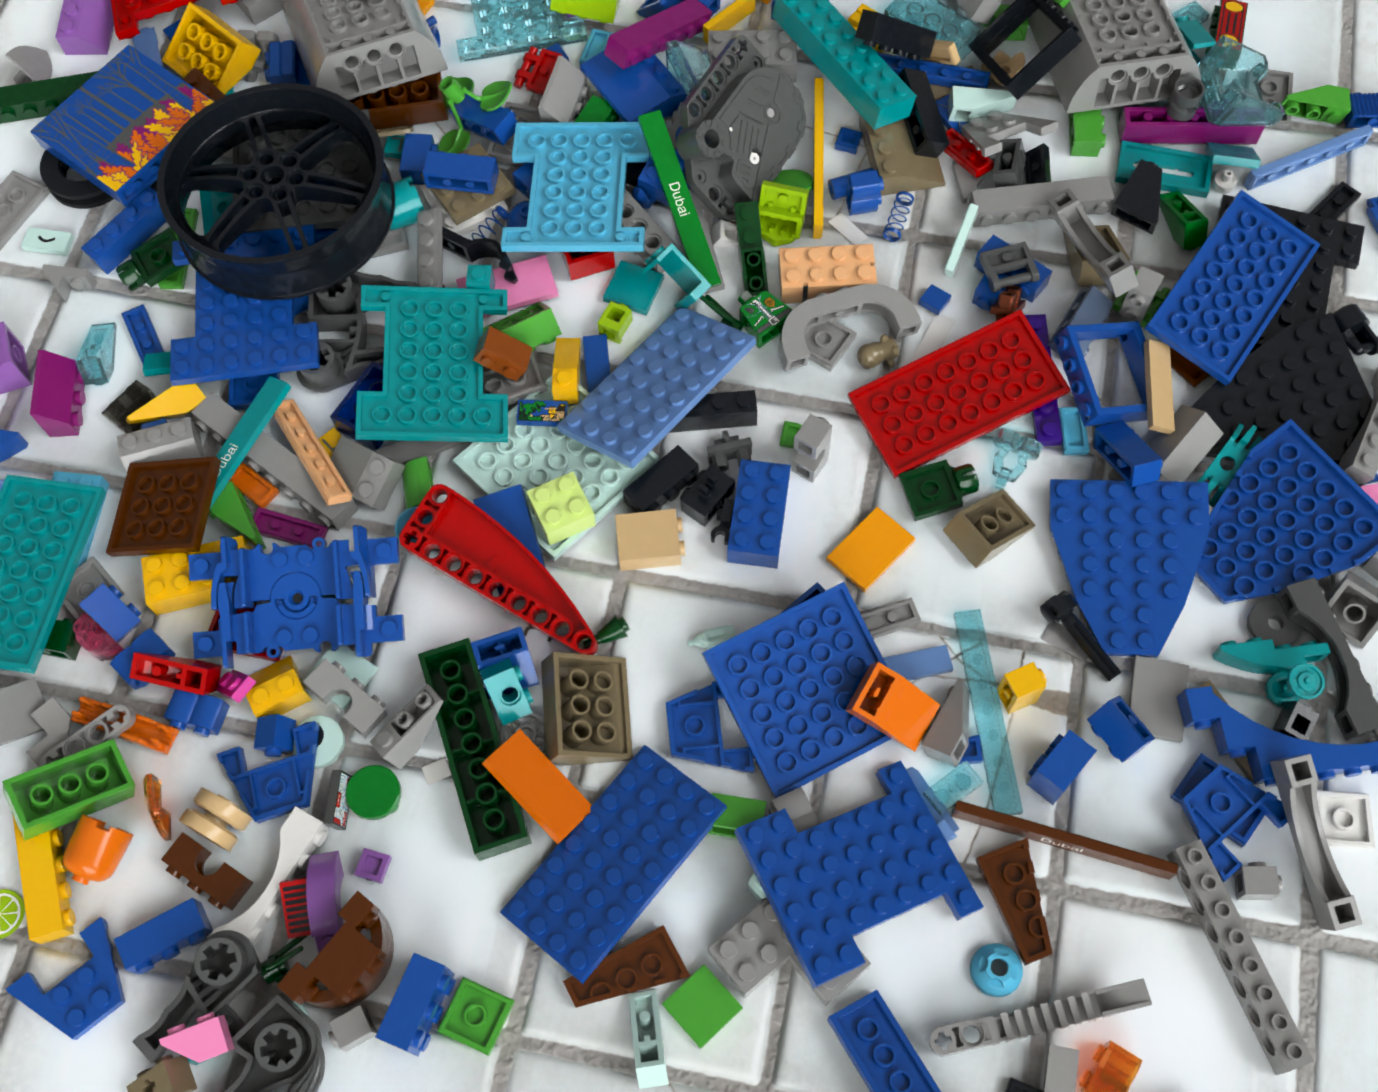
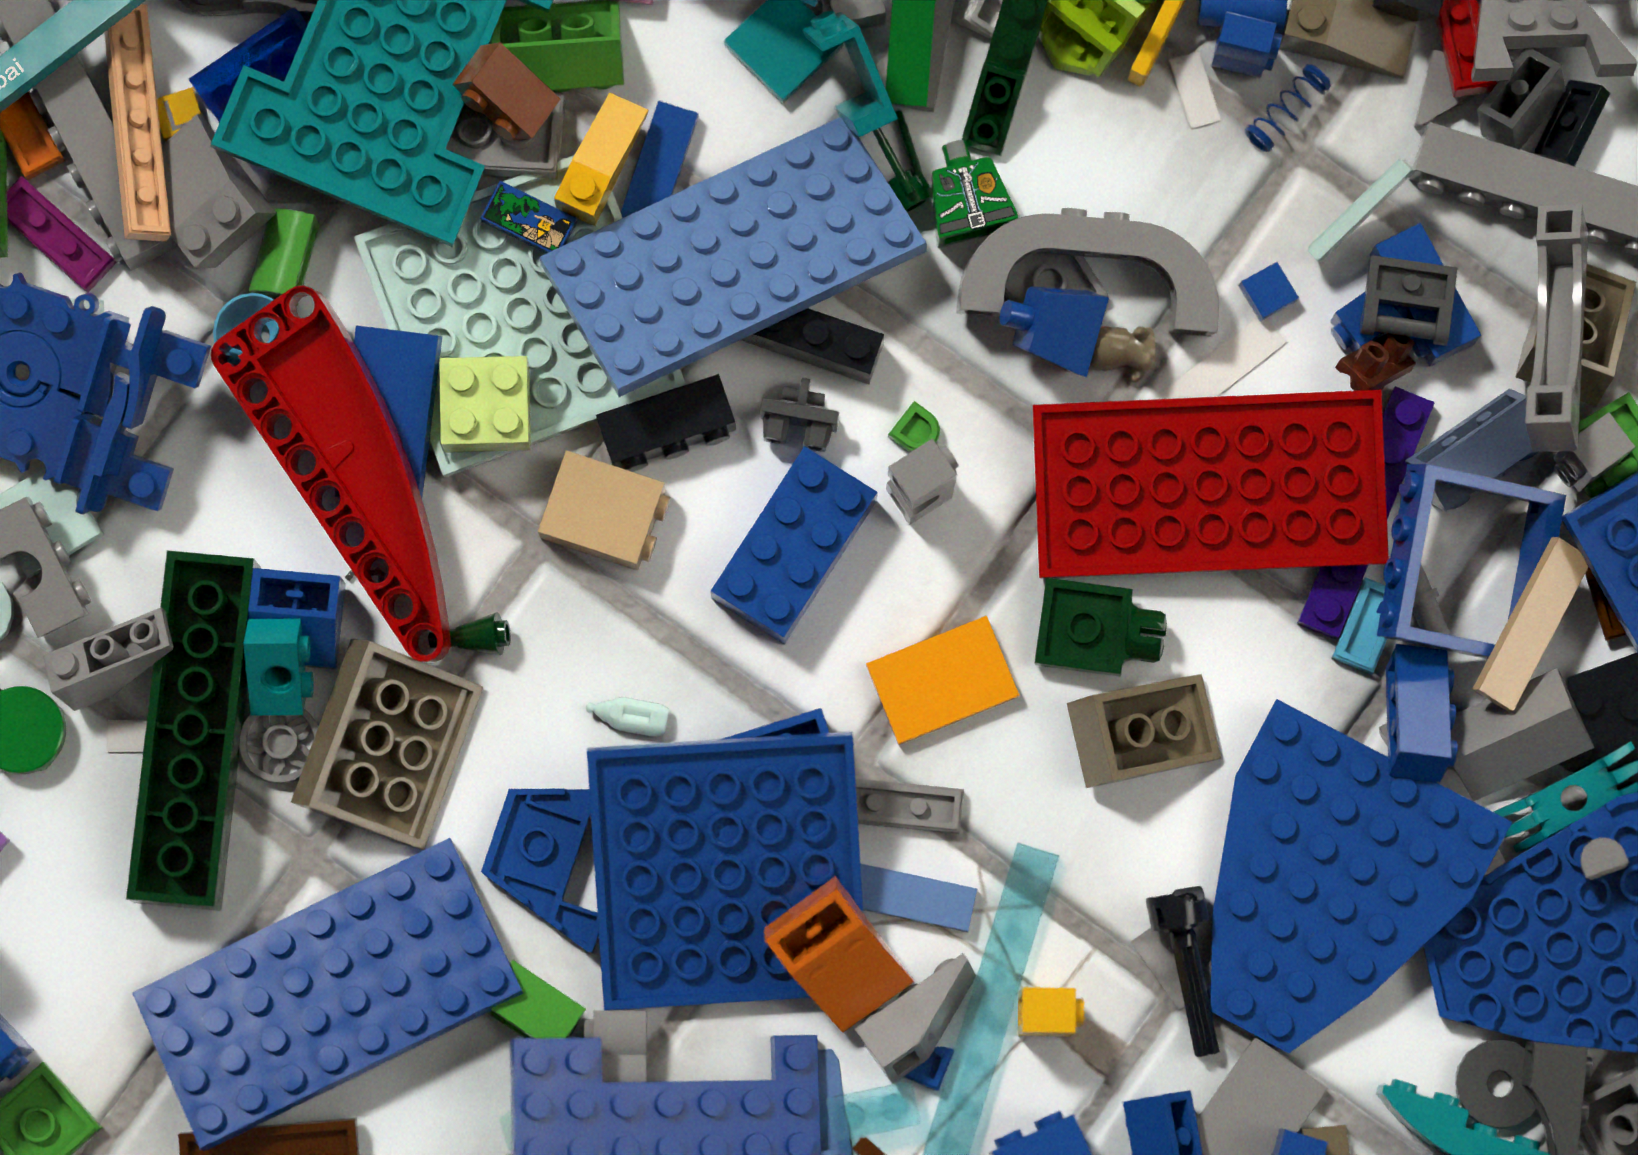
camera: 20 degrees right, 15 degrees up
(538, 786) = (261, 836): orange tile -> none
(615, 321) = (723, 82): lime brick -> none
(707, 494) = (728, 475): black brick -> none
(724, 515) = (738, 524): black plate -> none
(824, 269) = (1109, 163): light nougat piece -> none
(841, 352) = (1057, 325): none -> blue torso
(1023, 446) = (1268, 621): clear light blue piece -> none
(1265, 477) = (1602, 858): none -> light grey brick

